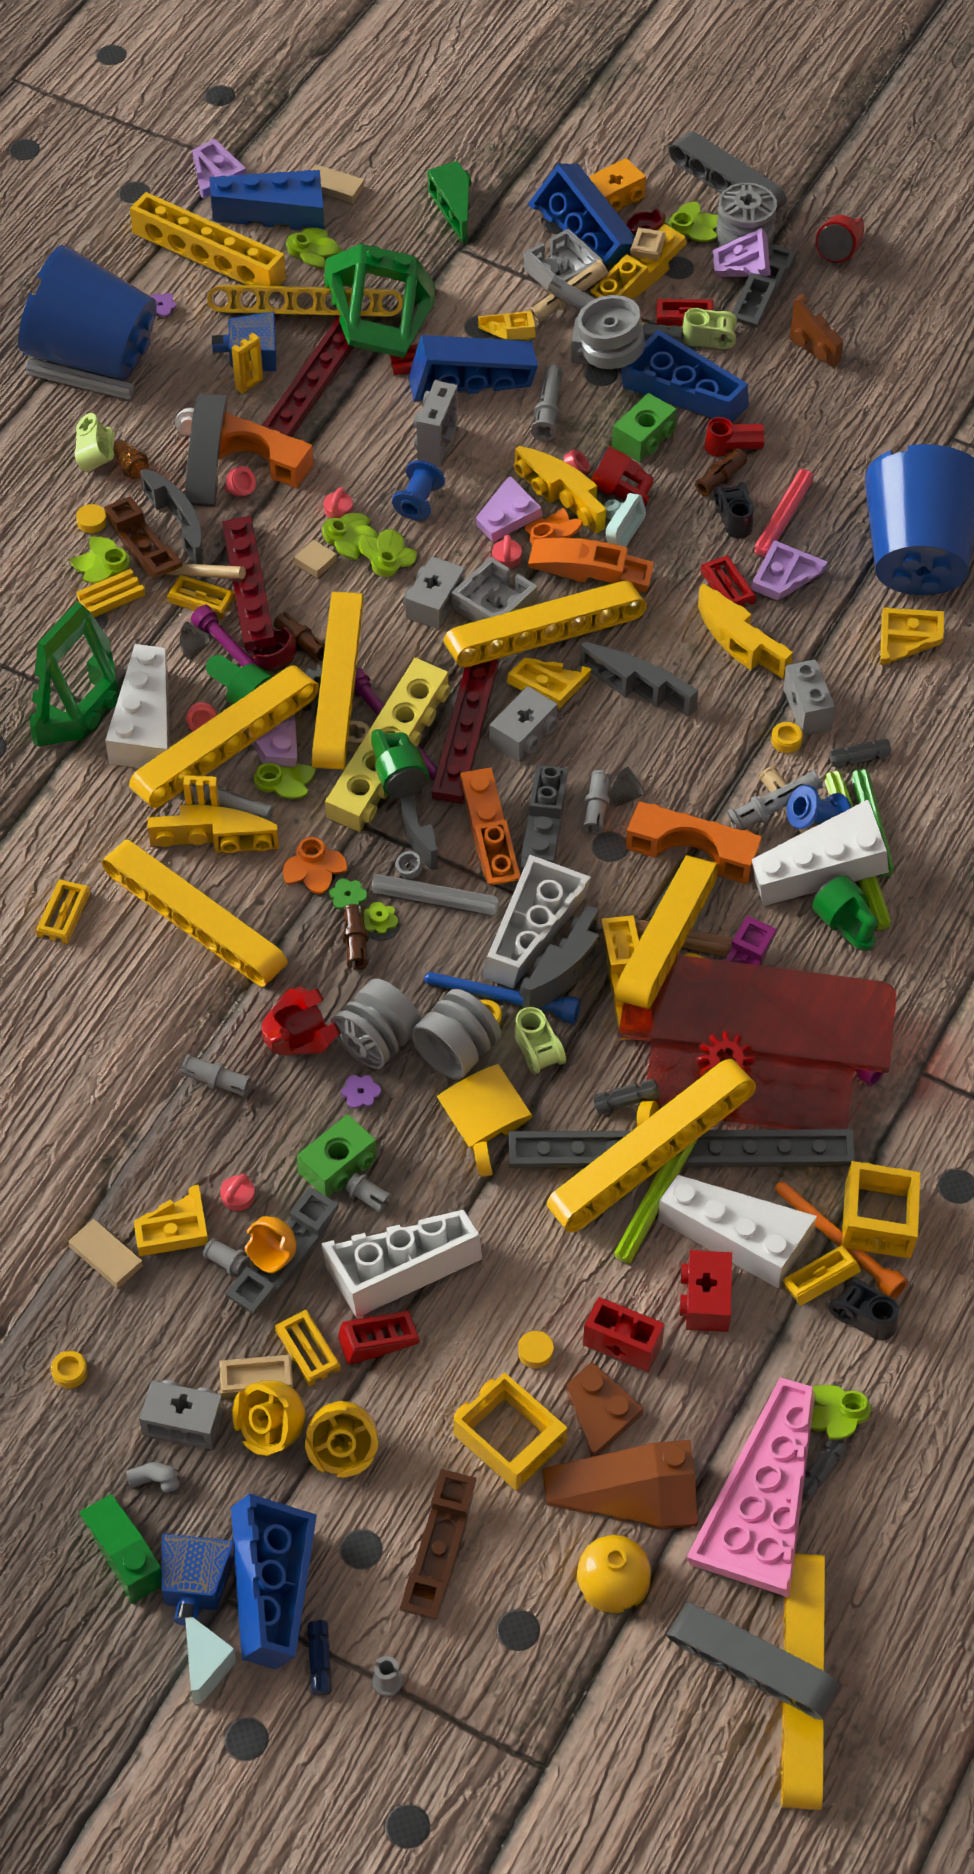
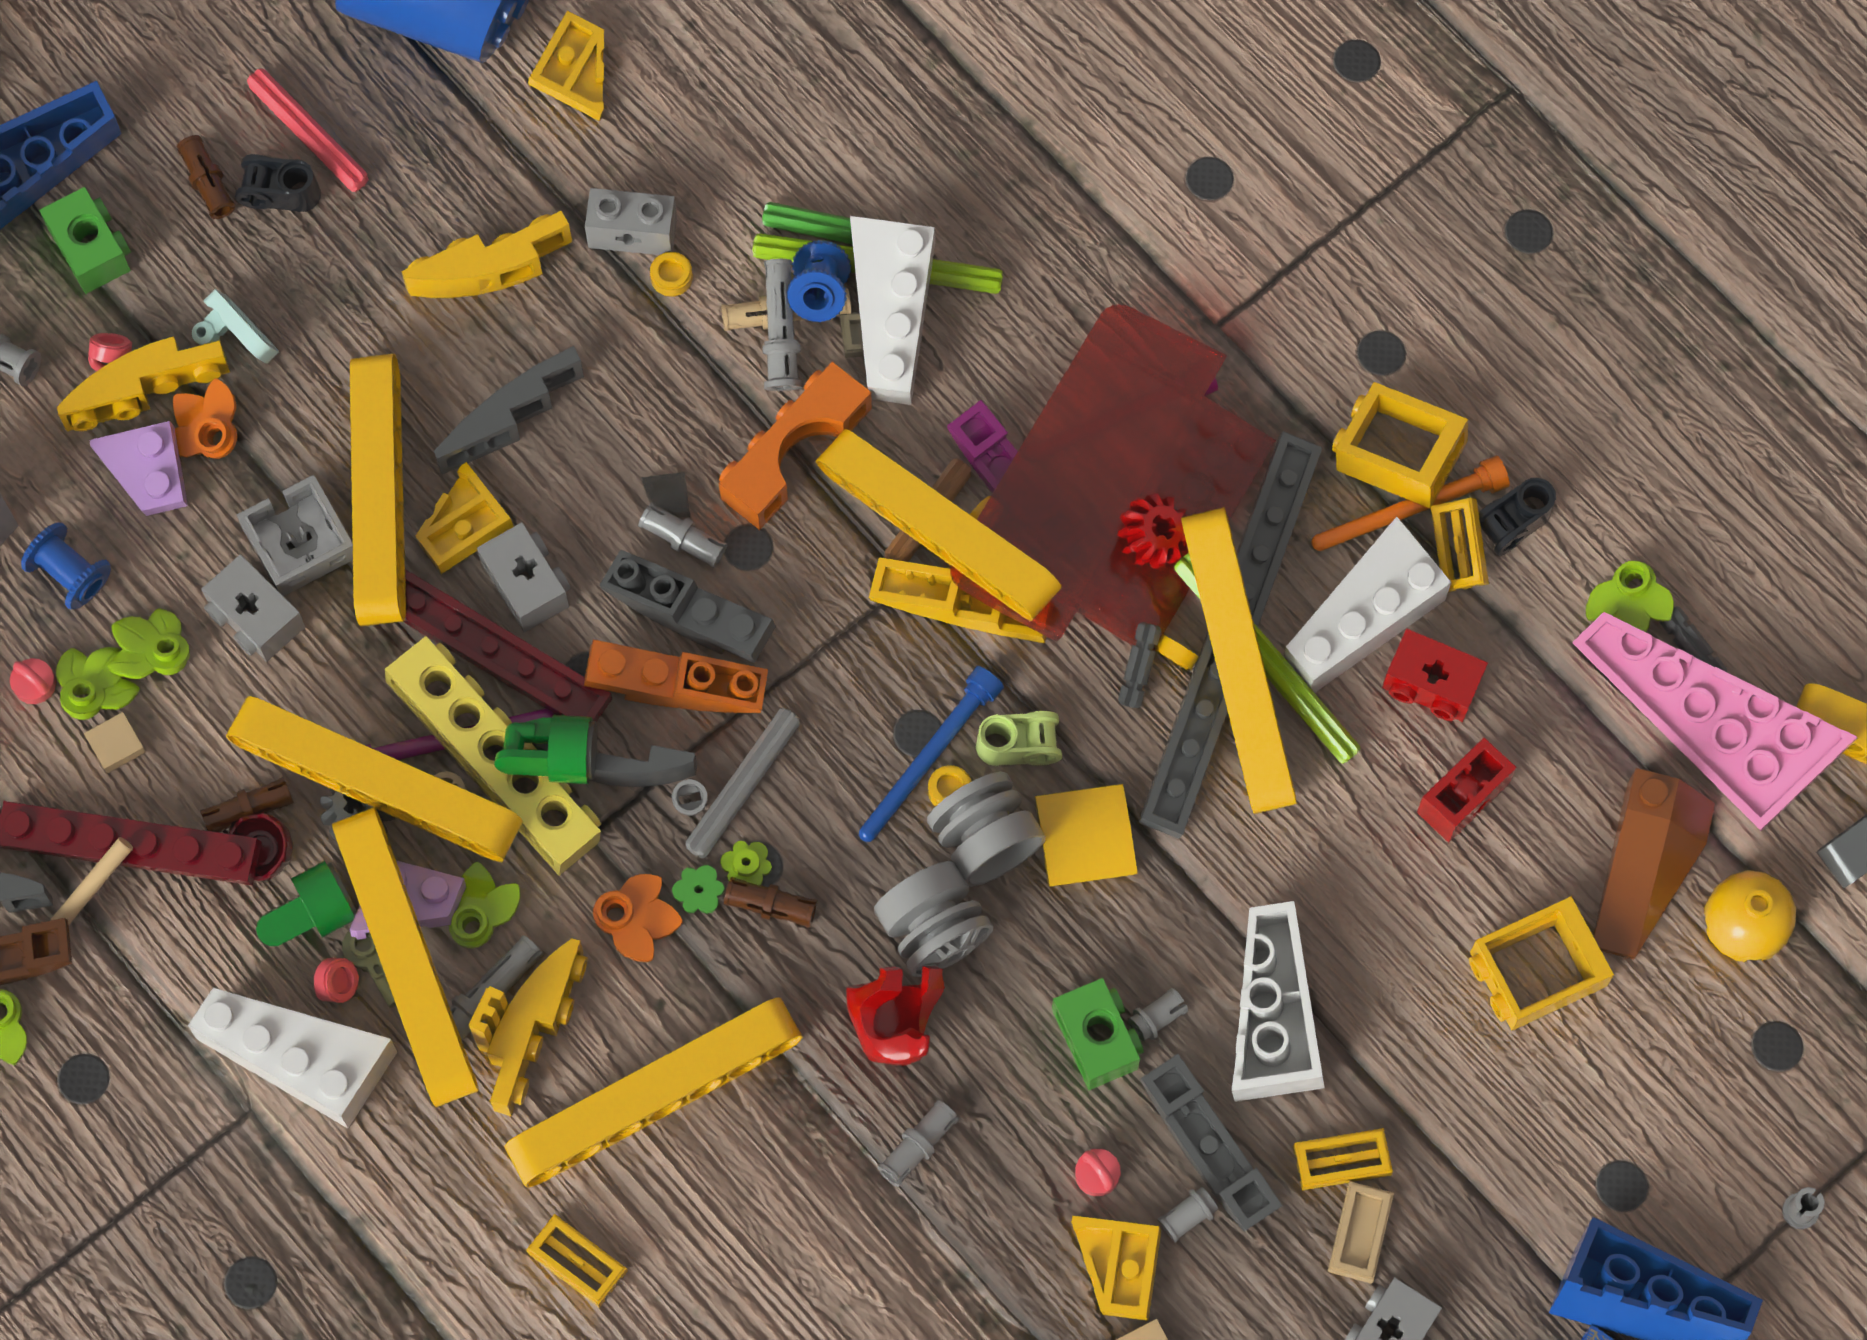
camera: 70 degrees left, 15 degrees up
(50, 723) = (200, 1085): green windscreen -> none
(108, 590) = (48, 998): yellow tile -> none
(192, 640) = (185, 952): clear smoke tile -> none
(193, 600) = (124, 927): yellow tile -> none
(206, 620) = (166, 920): magenta piece -> none
(269, 1416) = (1440, 1230): yellow cylinder -> none
(271, 1244) = (1207, 1151): light orange hair -> none
(319, 1657) = (1751, 1276): dark blue axle -> none
(341, 1439) = (1496, 1155): yellow cylinder -> none
(357, 1085) = (1007, 963): medium lavender plant -> none
(365, 1349) = (1357, 1101): red slope -> none
(439, 1545) = (1658, 1097): reddish brown slope -> none
(483, 1159) = (1163, 863): yellow tile -> none
(507, 552) = (219, 494): coral tile -> none
(535, 1349) = (1437, 897): yellow tile -> none
(537, 911) = (839, 677): white wedge -> none
(563, 965) = (924, 660): dark grey slope -> none
(589, 558) = (293, 395): orange slope -> none
(601, 1408) = (1537, 853): dark orange wing -> none
(611, 467) = (152, 308): red piece -> none
(706, 570) = (387, 258): red tile -> none
(724, 435) = (154, 135): red piece -> none
(786, 571) = (408, 168): lavender wing -> none
(845, 909) = (970, 312): green piece -> none
(860, 752) = (733, 199): dark grey axle -> none

